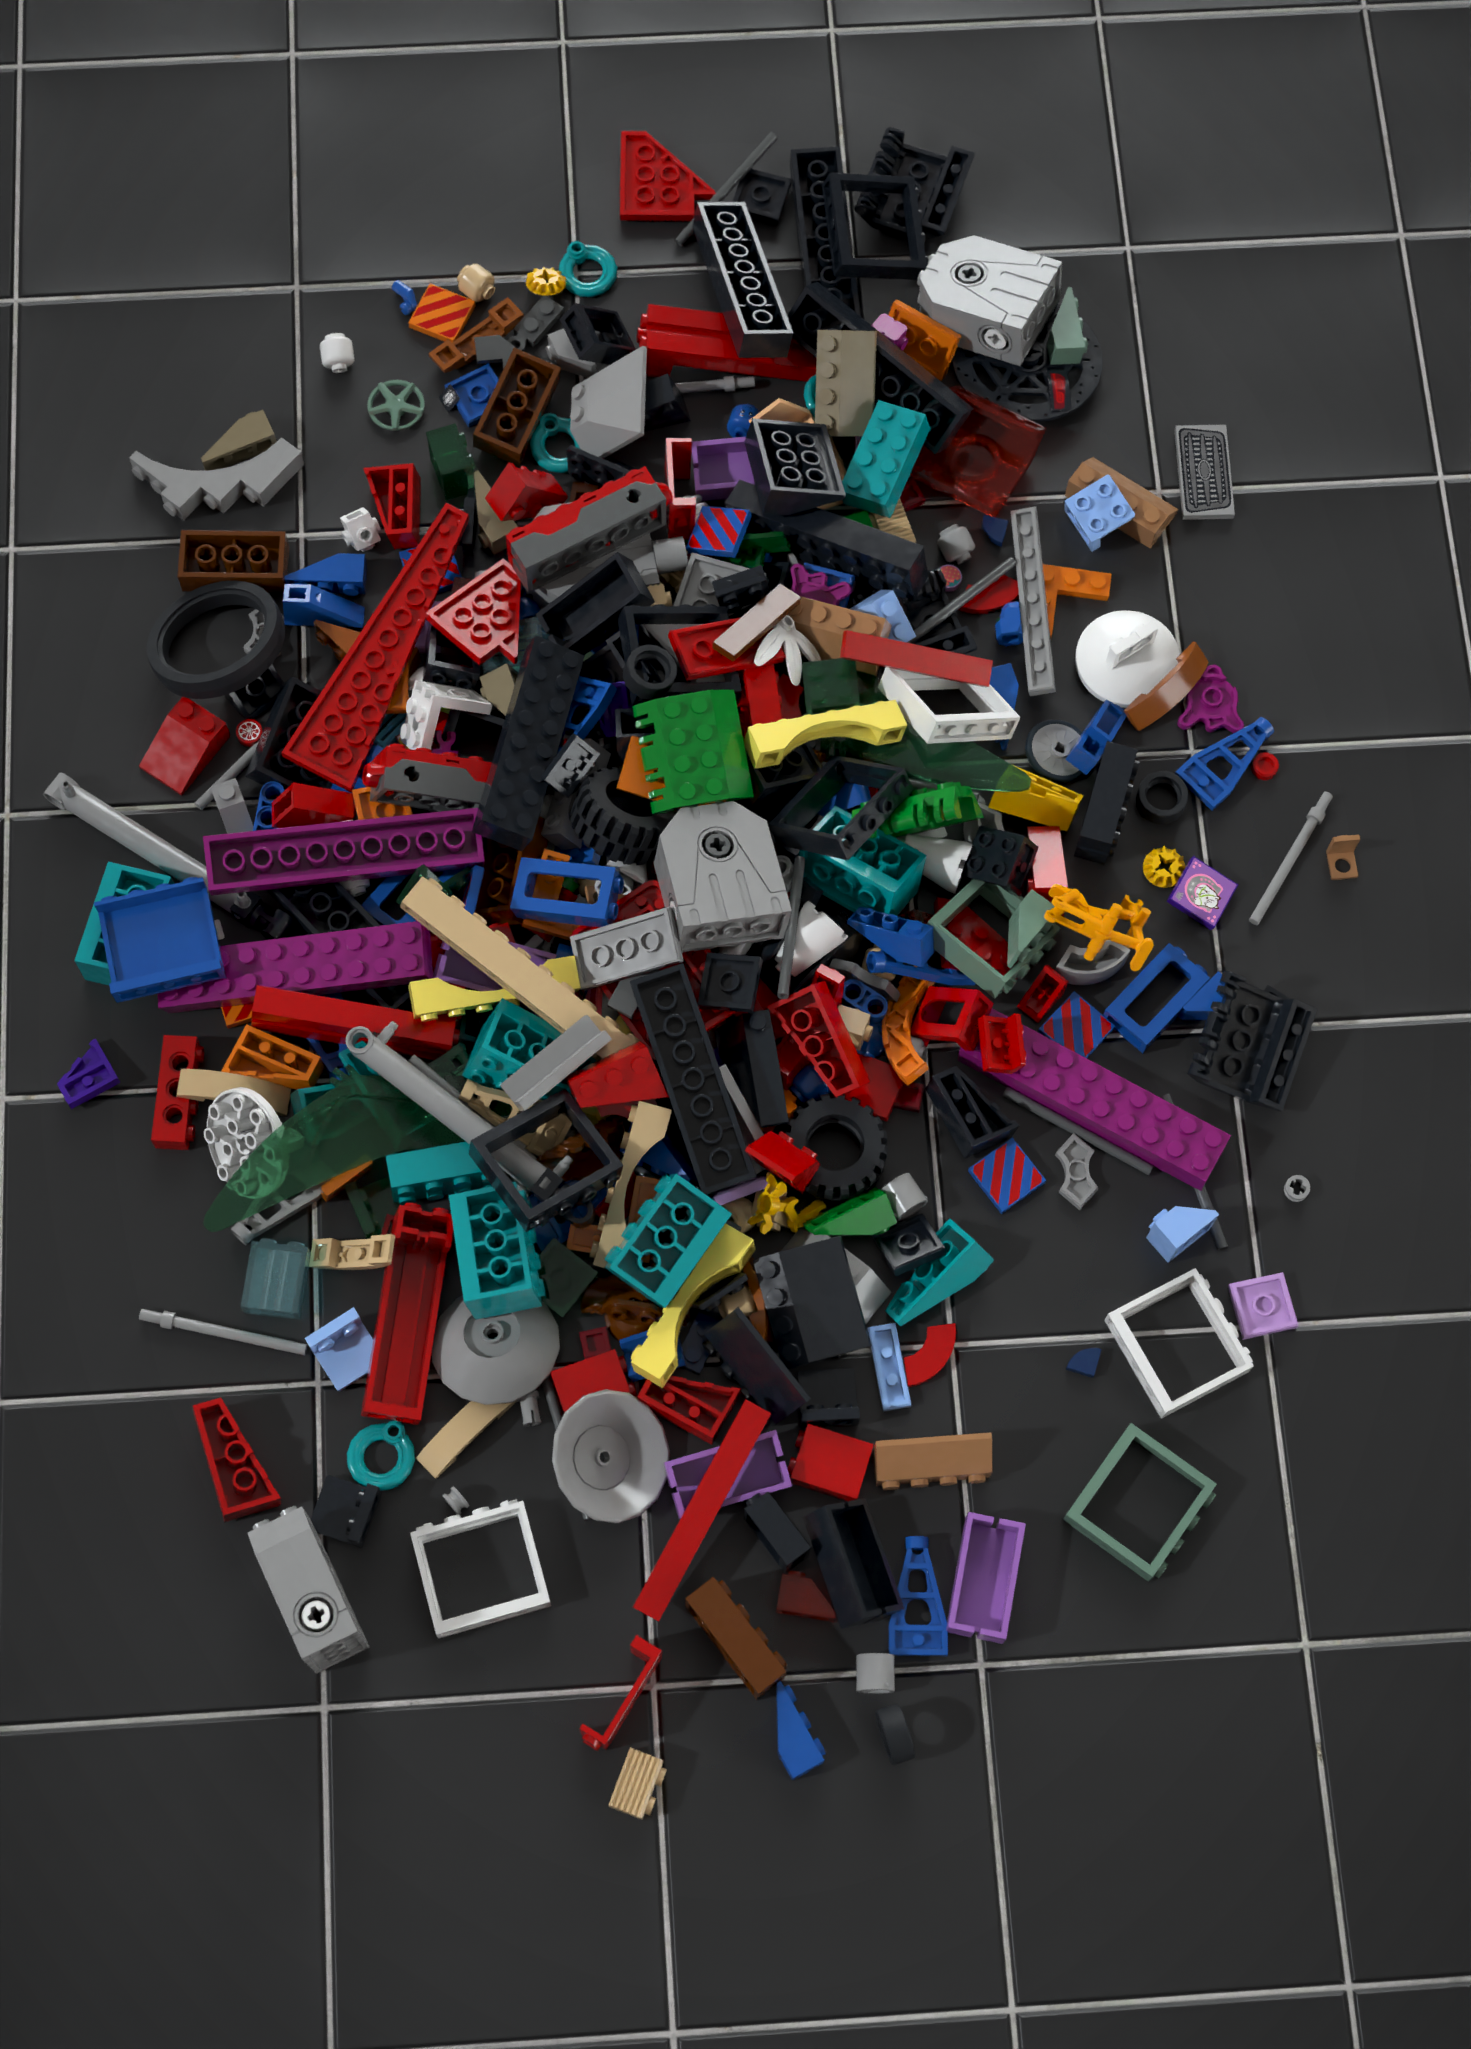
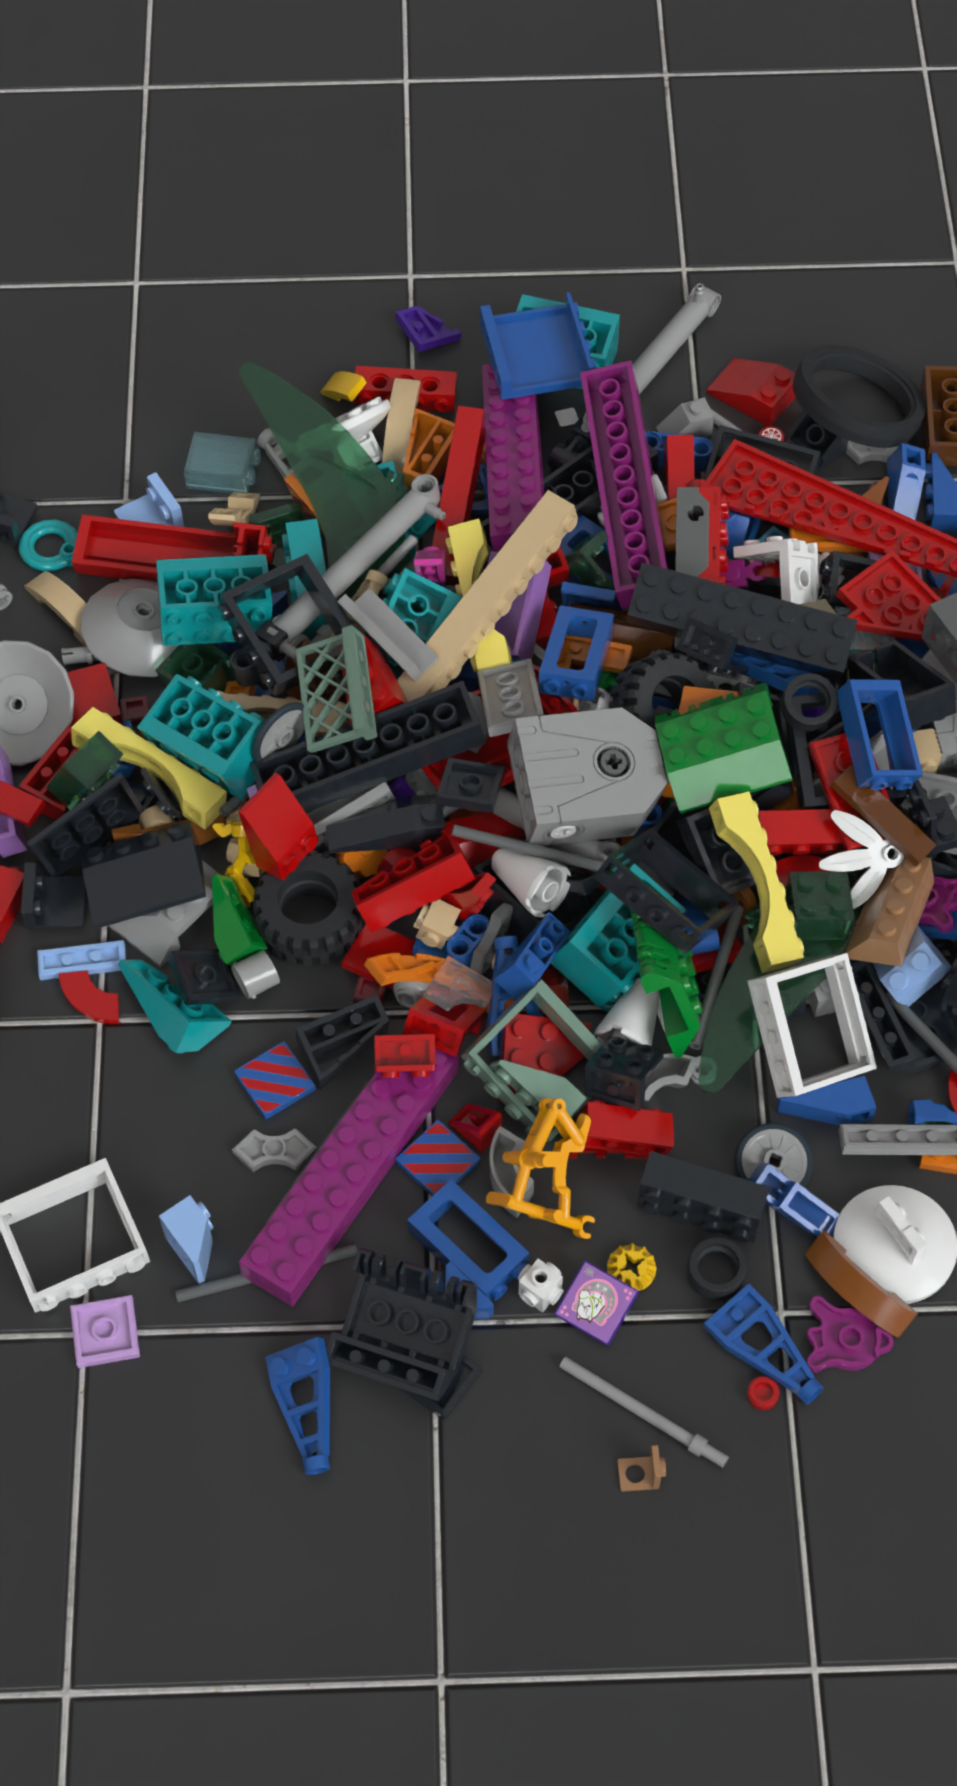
camera: 95 degrees right, 10 degrees down
(170, 1320) = (193, 393): light grey bar -> none
(175, 1155) = (343, 385): none -> yellow slope
(235, 1471) = (55, 430): red wedge -> none
(464, 1030) = (431, 565): none -> dark pink slope
(638, 1079) = (359, 690): none -> sand green fence
(673, 1162) = (280, 731): none -> light grey wheel
(685, 600) = (896, 729): none -> blue piece
(707, 1362) = (85, 771): none -> clear green brick
(916, 658) = (856, 983): red tile -> none
(916, 1006) = (458, 985): none -> clear tile
(1042, 802) = (707, 1122): yellow wedge -> none
(1085, 1362) = (63, 1144): dark blue tile -> none
(1193, 936) = (540, 1294): none -> white brick
(1282, 1129) = (291, 1366): none -> blue plate
(1305, 1185) = (233, 1371): light grey bush -> none

